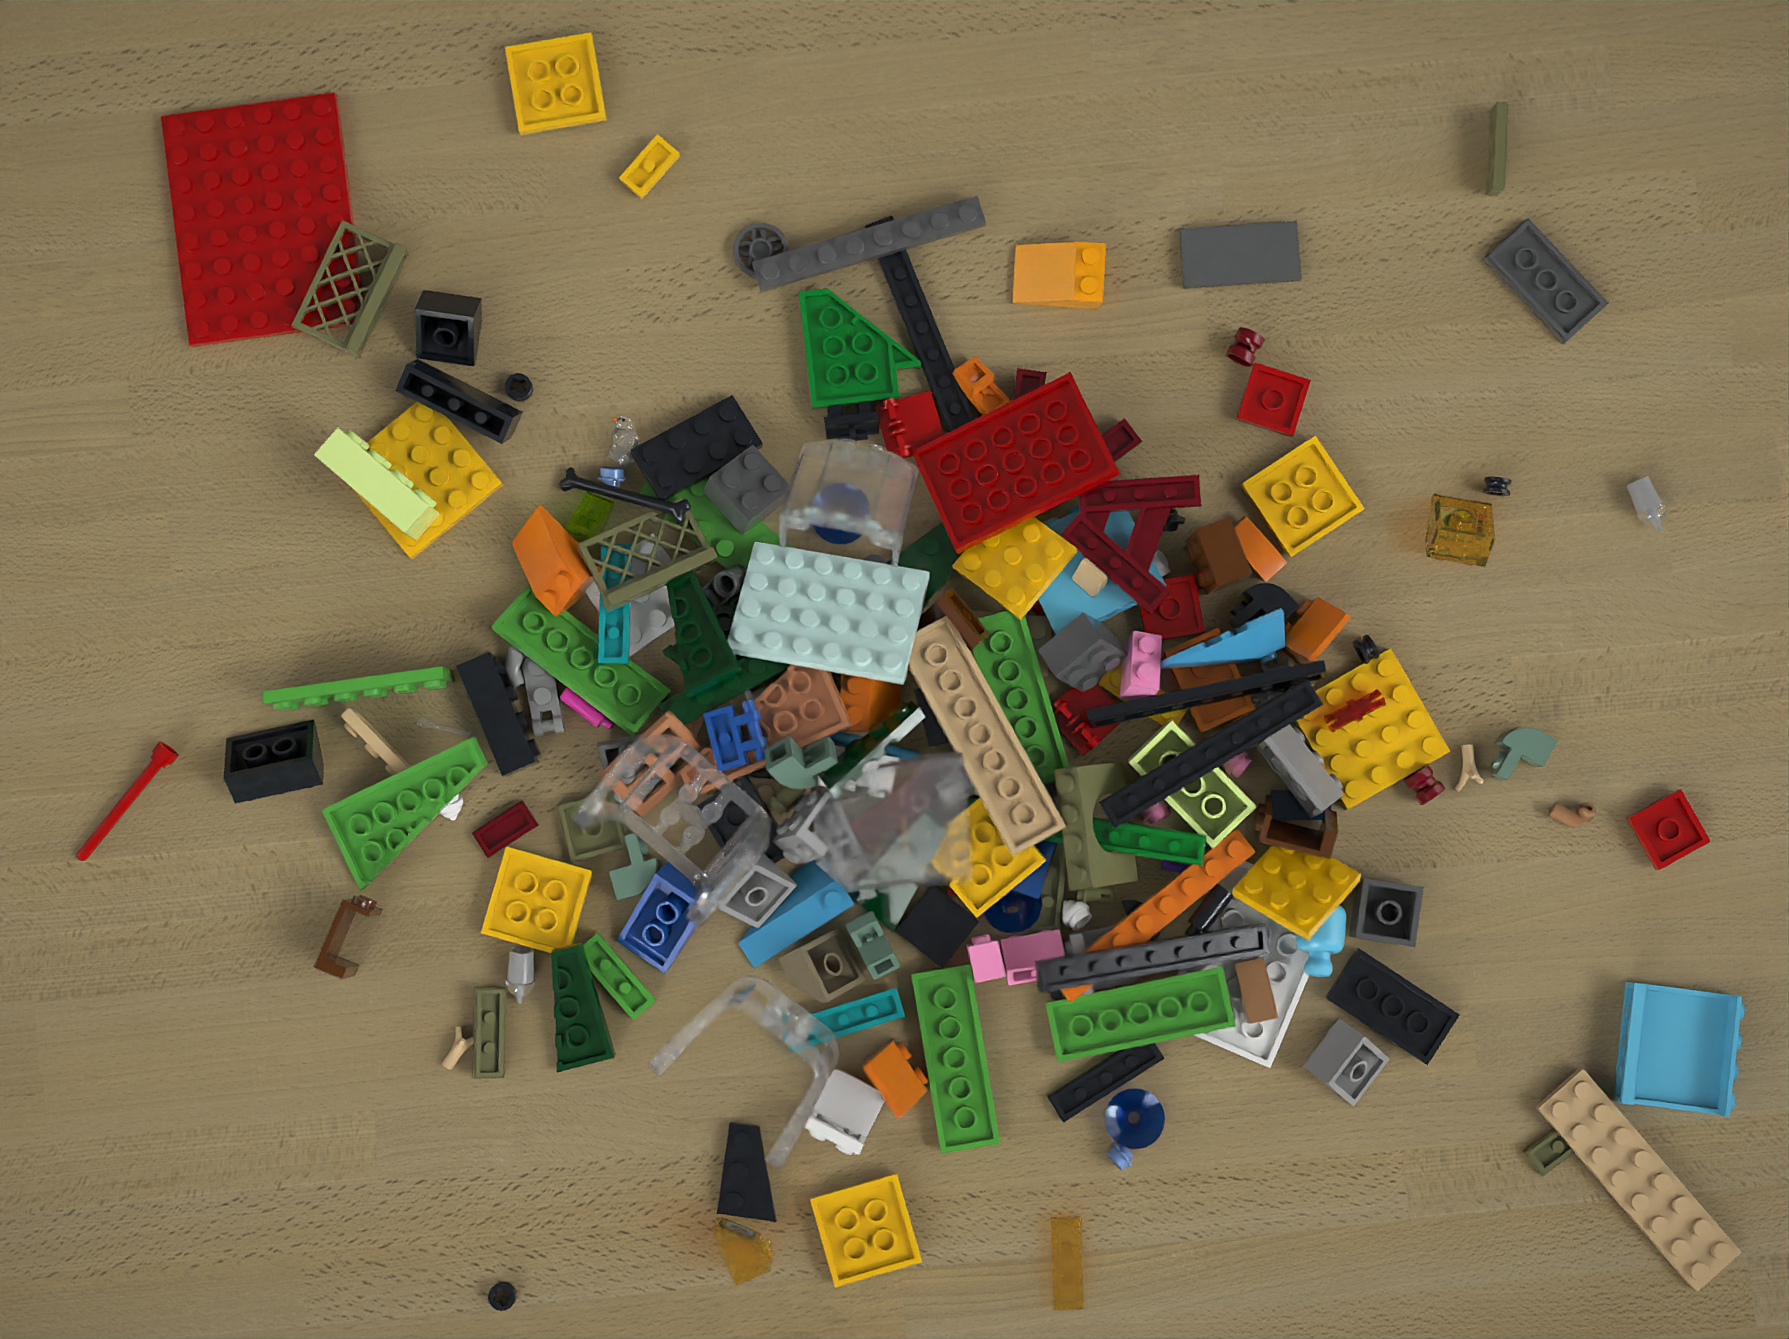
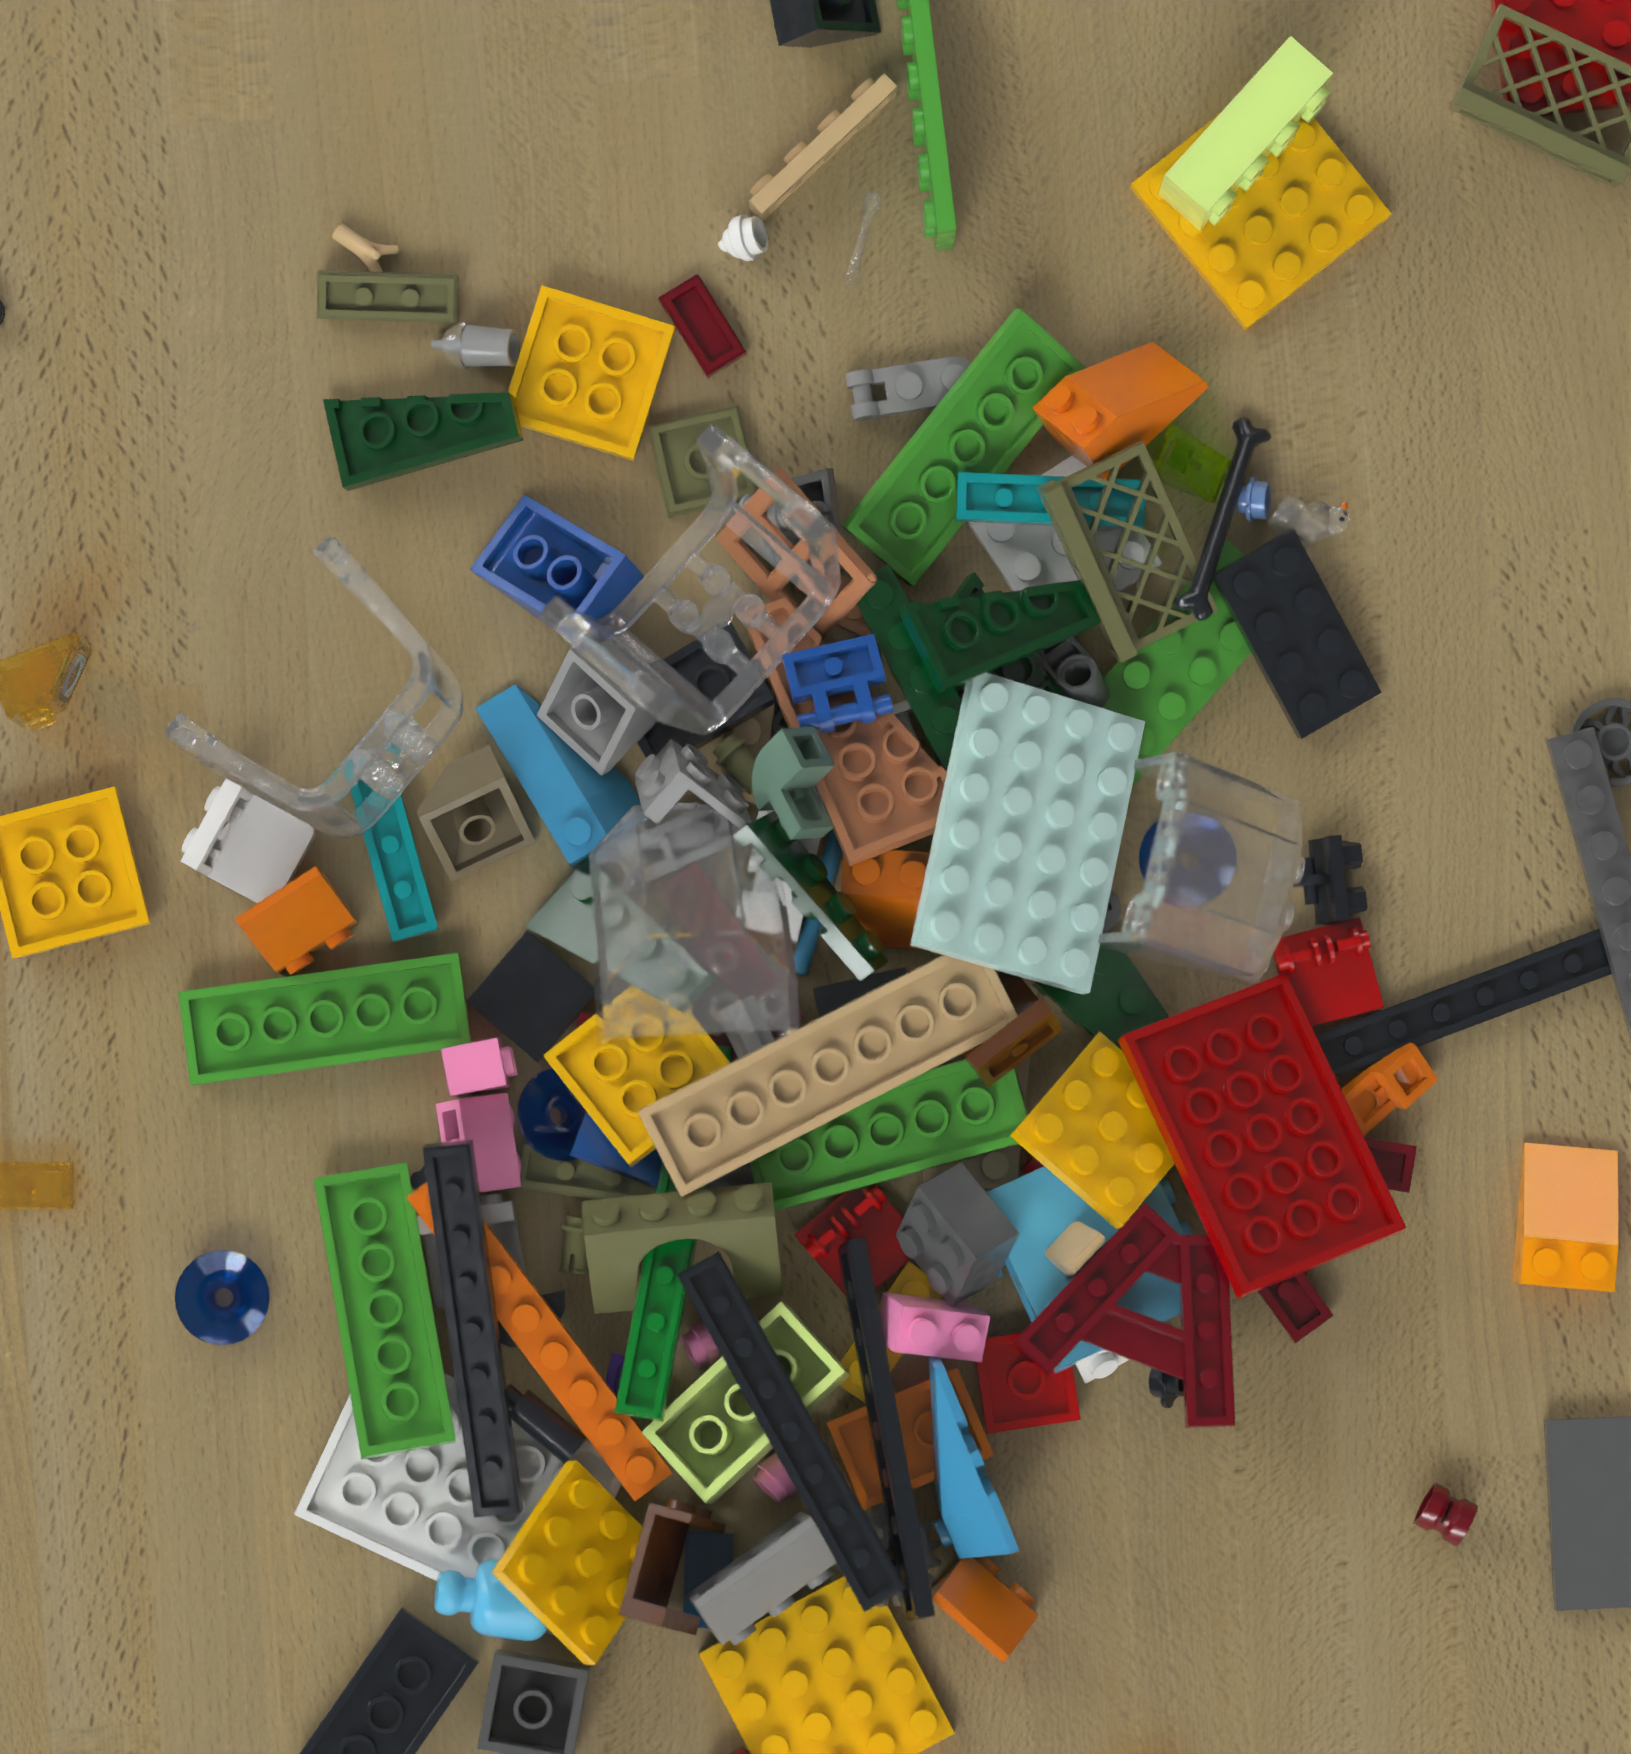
camera: 90 degrees right, 0 degrees up
(328, 959) = (508, 51): reddish brown panel -> none
(388, 815) = (728, 147): bright green wing -> none
(448, 327) = (1495, 247): black slope -> none
(459, 401) = (1377, 262): black brick -> none
(498, 714) = (882, 317): black brick -> none
(512, 665) = (955, 339): light grey arm -> none
(516, 395) = (1385, 354): black bush -> none
(585, 709) = (885, 453): dark pink cylinder -> none
(617, 977) = (467, 495): bright green plate -> none
(636, 877) = (620, 525): sand green brick -> none
(745, 1177) = (151, 687): black wing -> none
(747, 489) = (1227, 710): dark grey brick -> none
(847, 353) = (1443, 876): green wing -> none
(873, 945) = (505, 893): sand green brick -> none
(1075, 914) = (544, 1214): white plate -> none
(1103, 1079) = (285, 1251): black tile -> none
(1120, 1156) = (164, 1274): medium blue plate -> none
(1217, 556) = (1105, 1452): reddish brown brick -> none
(1255, 991) = (416, 1494): medium nougat slope -> none
(1259, 551) = (1118, 1519): orange slope -> none
(1262, 599) = (1036, 1534): black brick -> none
(1273, 399) = (1359, 1557): red plate -> none
(1302, 496) = (1201, 1599): yellow plate -> none
(1346, 1062) = (299, 1636): light grey slope -> none
(1354, 710) = (855, 1668): clear red pin -> none
(1366, 649) = (953, 1693): black bush -> none

